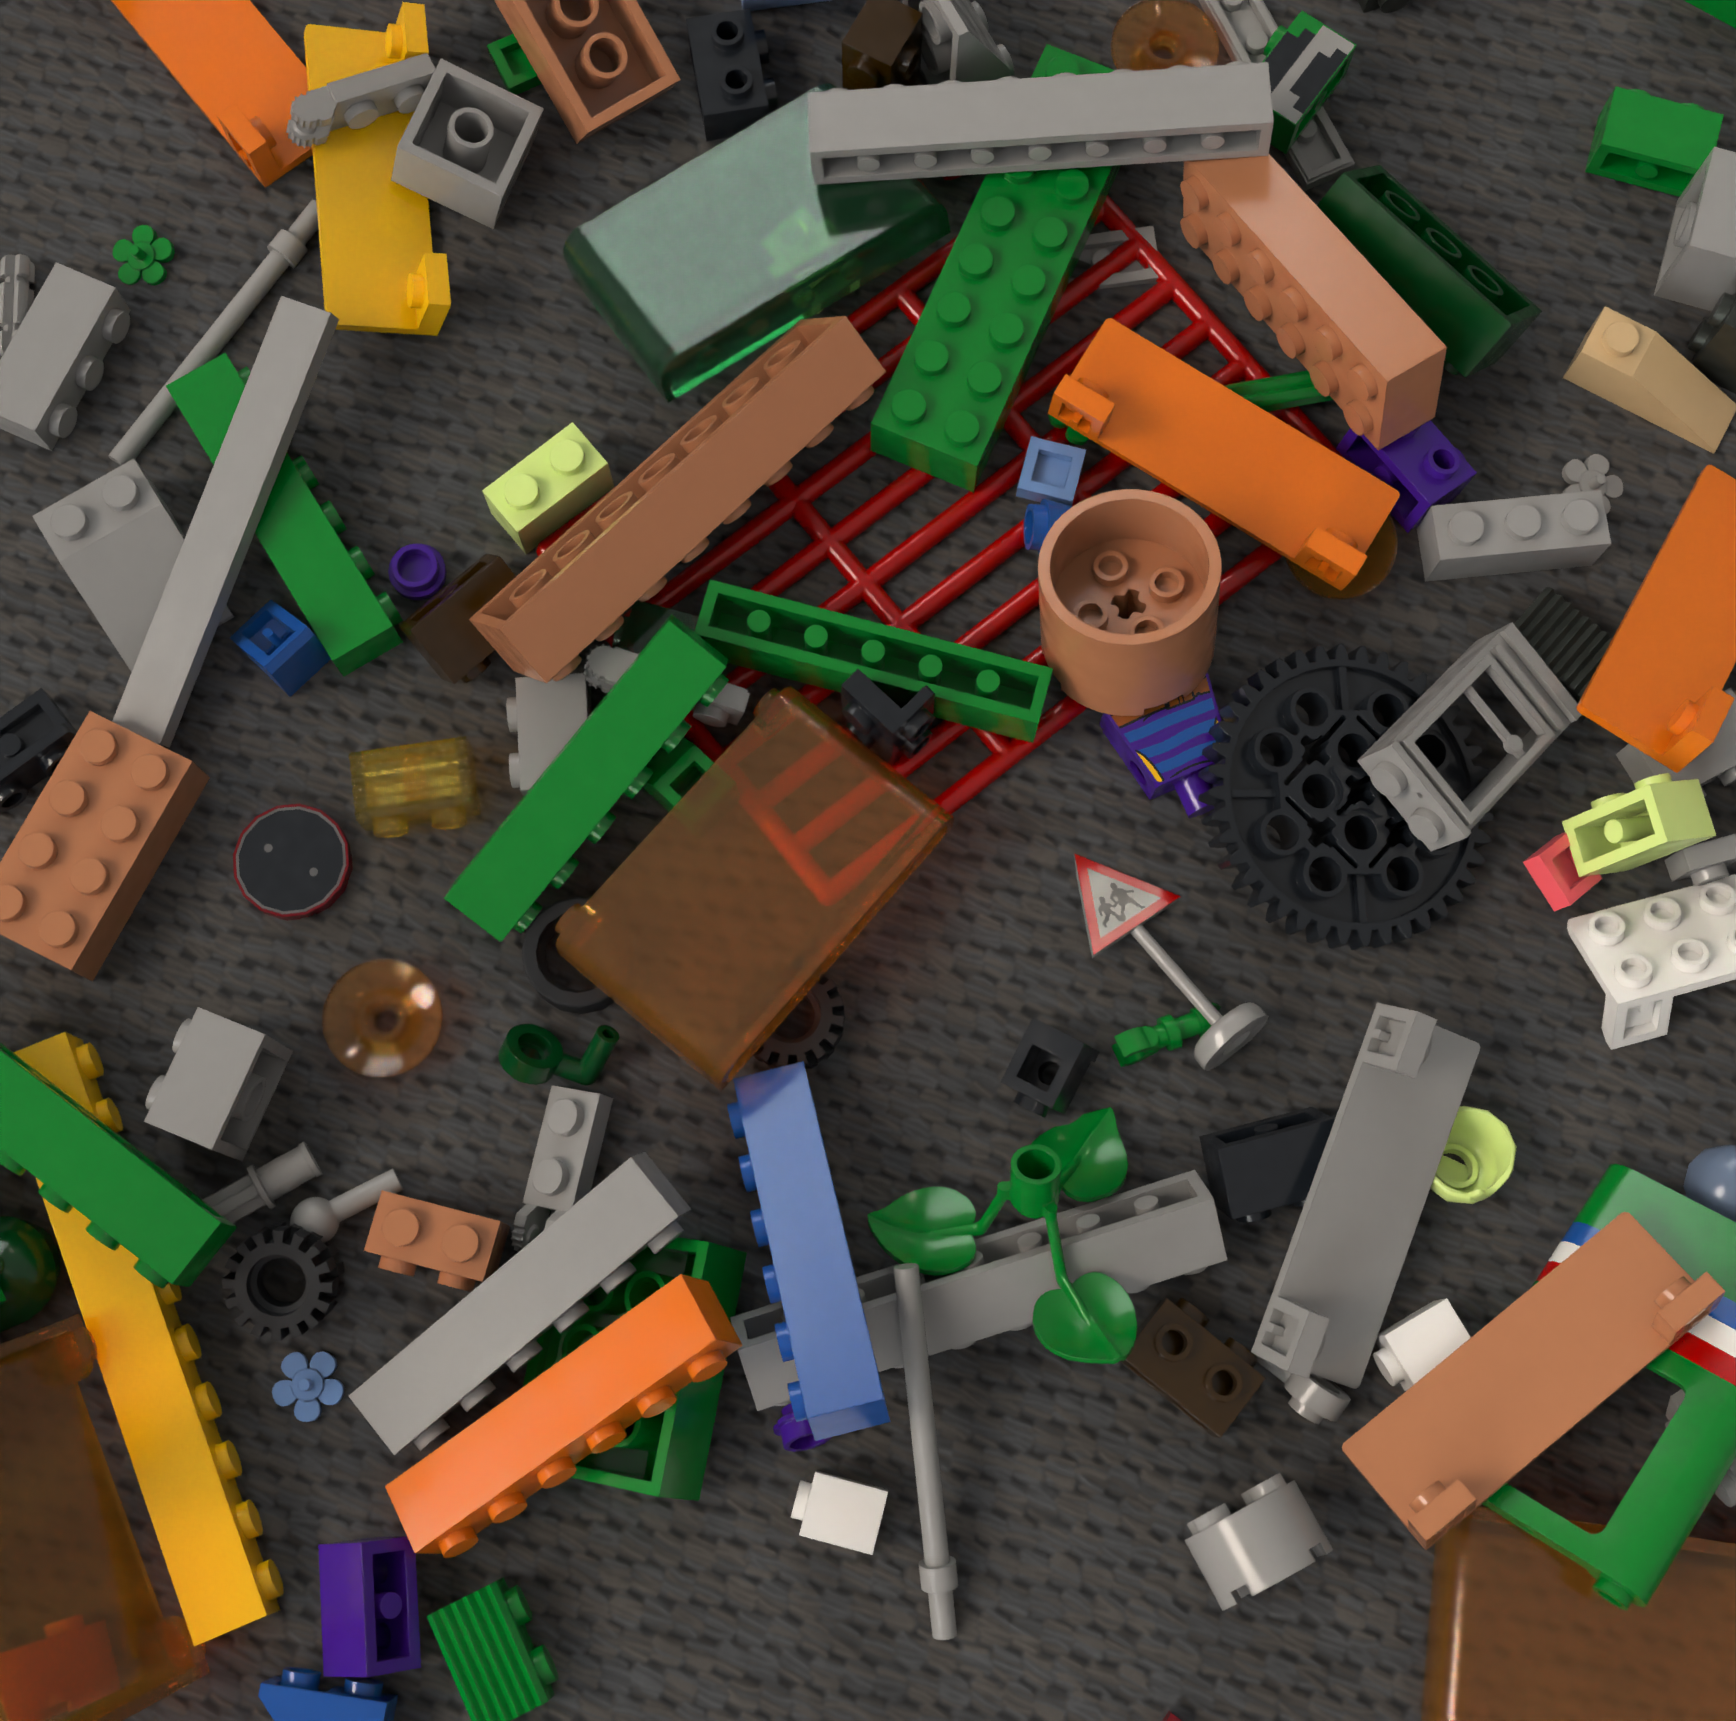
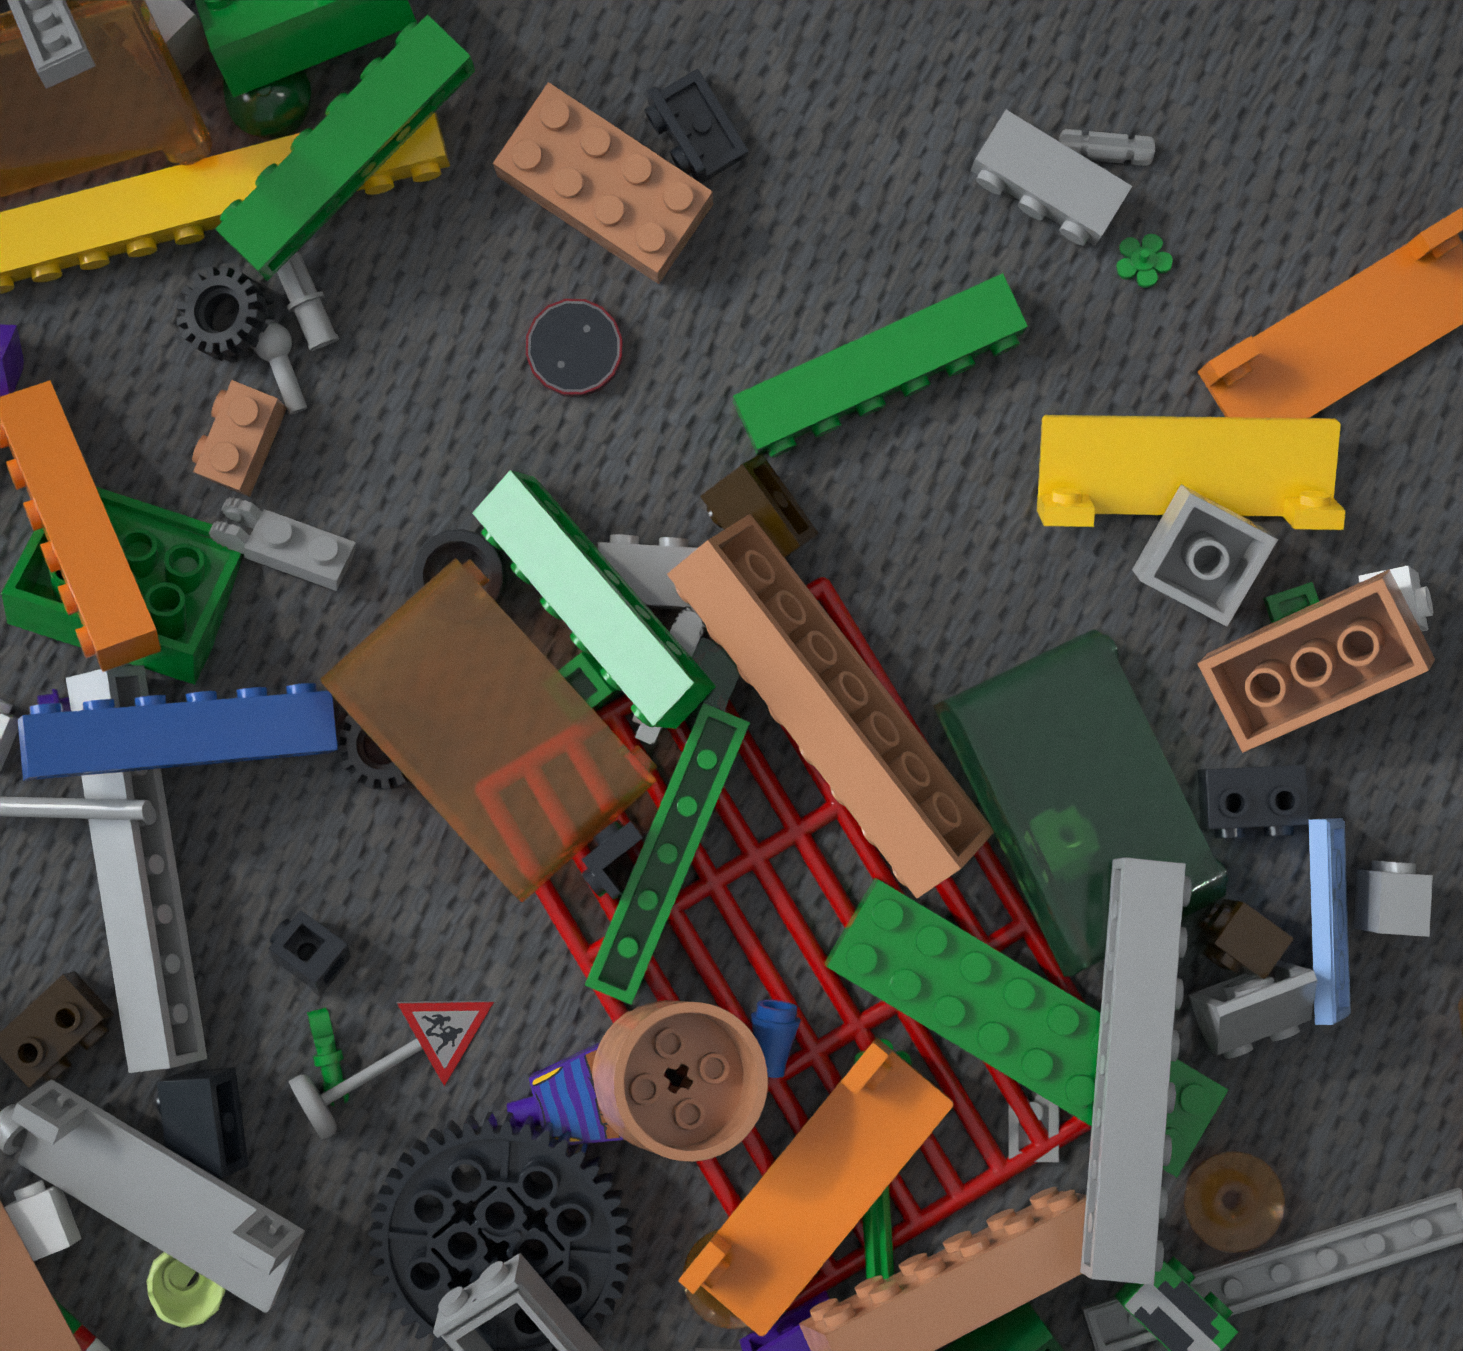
camera: 95 degrees right, 10 degrees up
(117, 551) = (847, 234): light grey slope -> none
(217, 1083) = (382, 273): light grey brick -> none
(225, 520) = (870, 317): light grey tile -> none
(281, 647) = (762, 349): blue slope -> none
(285, 250) = (1131, 385): light grey bar -> none
(308, 1384) = (147, 326): medium blue plant -> none
(359, 100) = (1253, 462): light grey hinge -> none
(359, 999) = (411, 391): clear orange dish -> none
(414, 786) = (621, 454): clear yellow brick -> none
(417, 571) = (816, 473): dark purple plate -> none
(520, 1303) = (172, 502): light grey brick -> none
(535, 1055) = (377, 543): dark green plate -> none
(549, 487) = (871, 593): yellowish green brick -> none
(1050, 471) = (826, 1032): medium blue plate -> none
(1086, 1161) = (232, 967): green plant -> none

